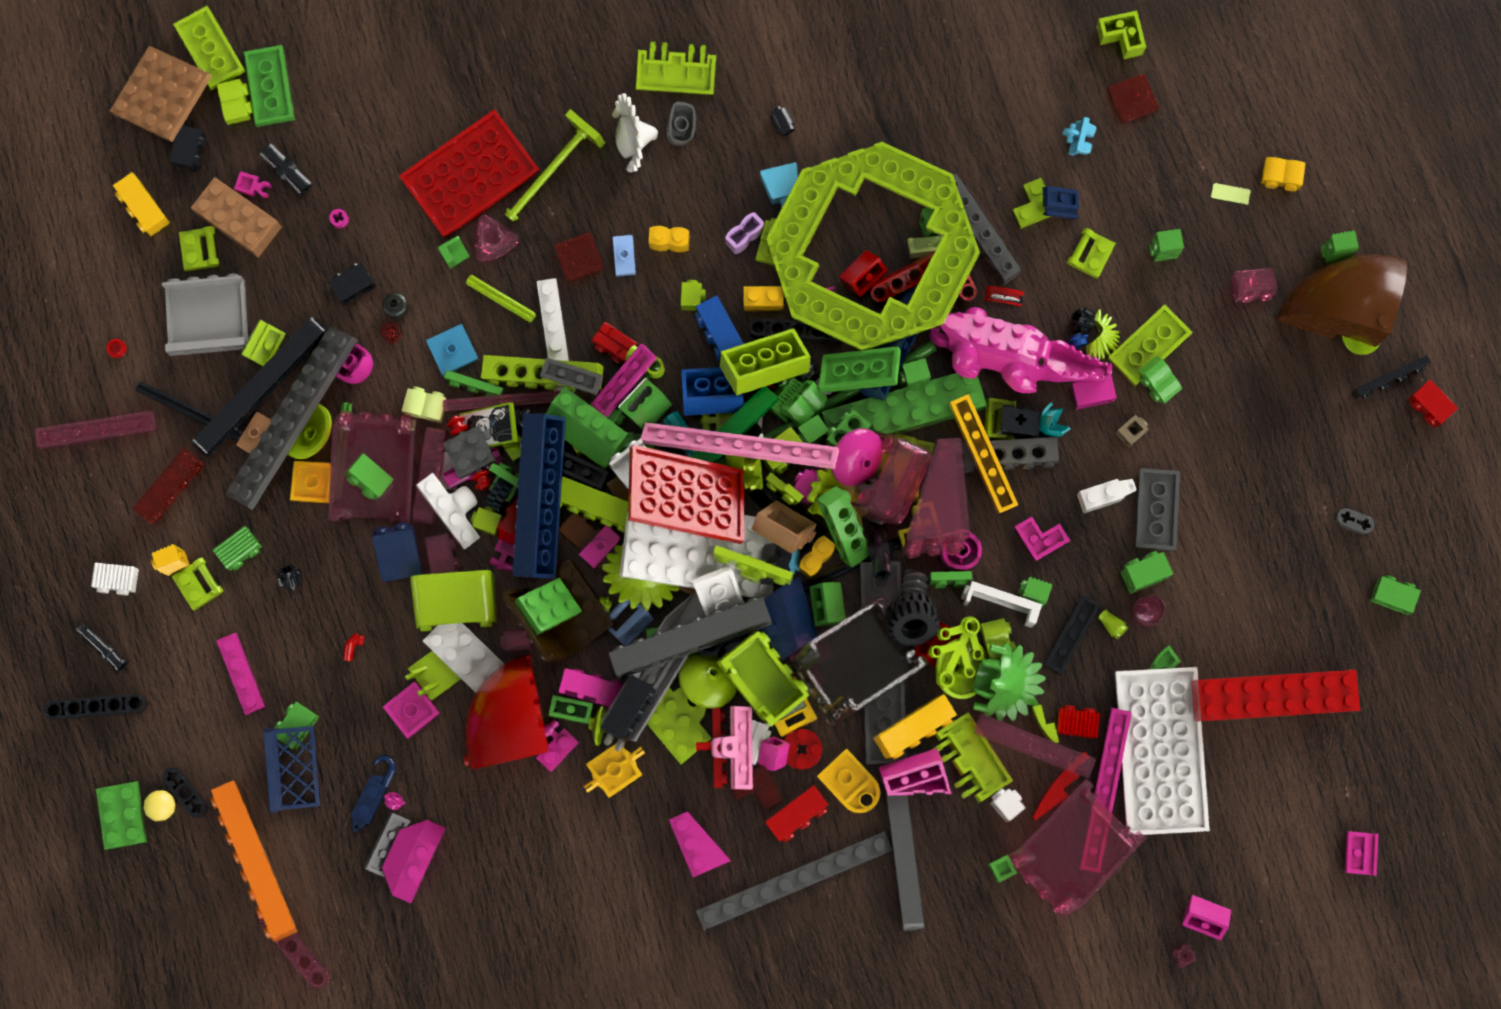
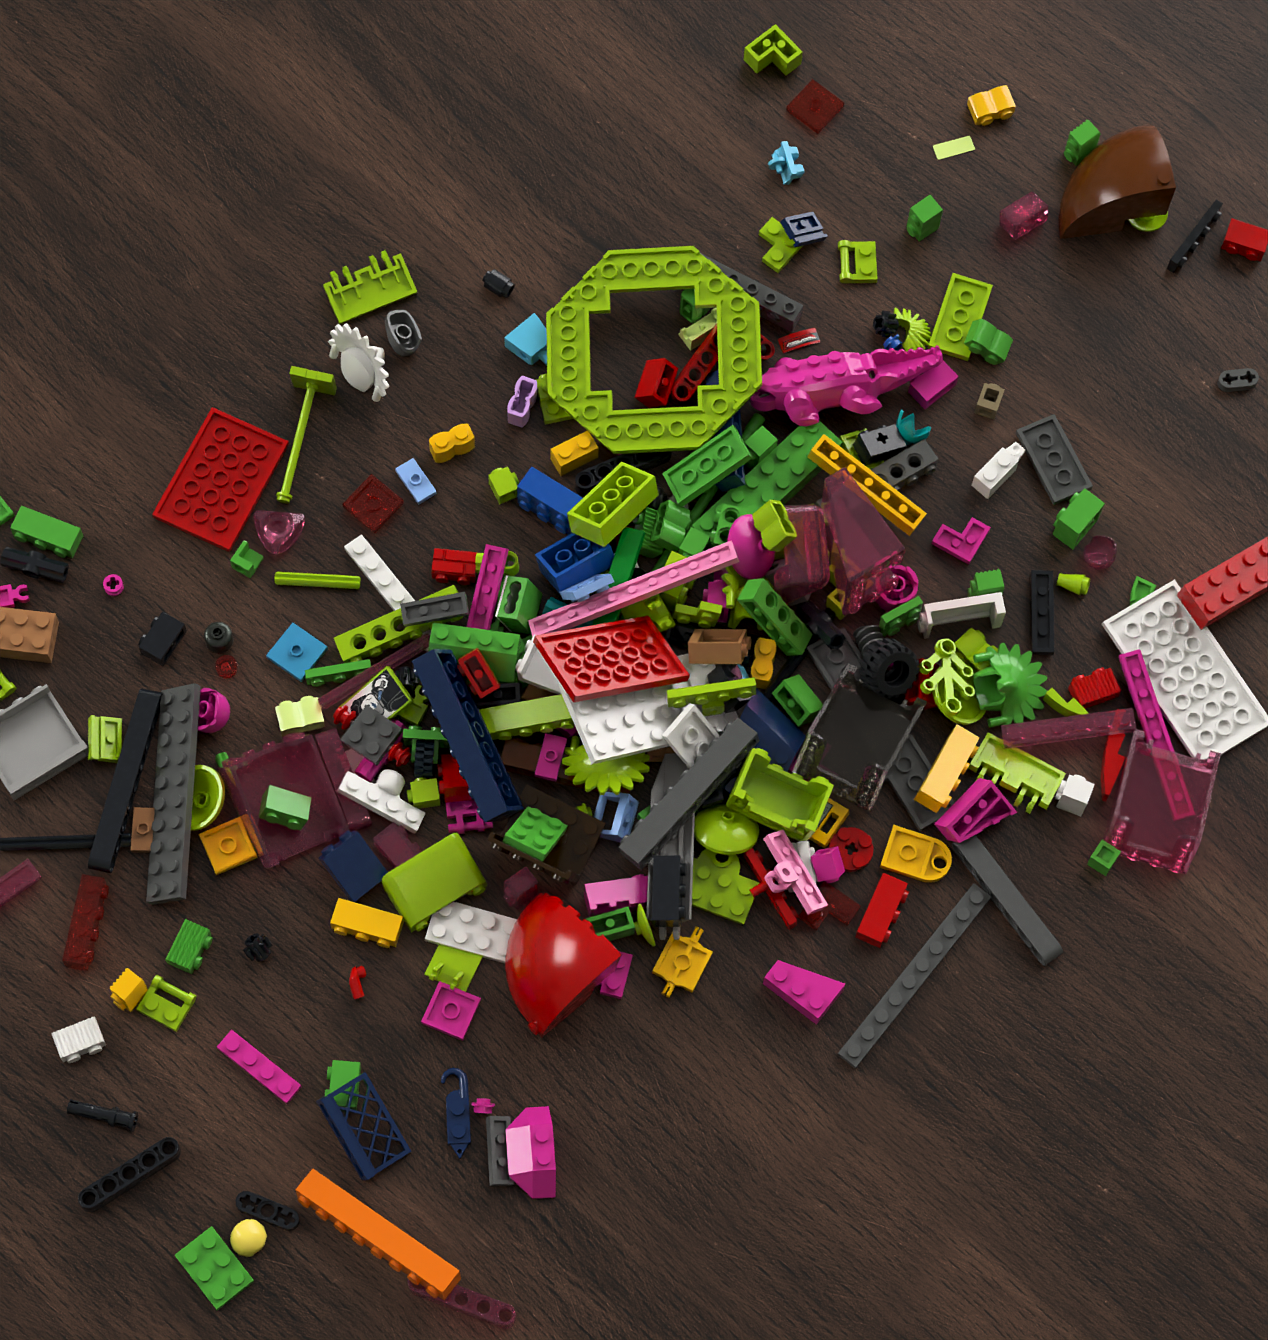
camera: 35 degrees left, 10 degrees down
(308, 148) = (46, 532): none -> bright green brick
(384, 604) = (366, 923): none -> yellow brick
(576, 449) = (478, 672): none -> red brick
(698, 421) = (582, 590): none -> light blue plate
(881, 452) = (774, 525): none -> lime brick

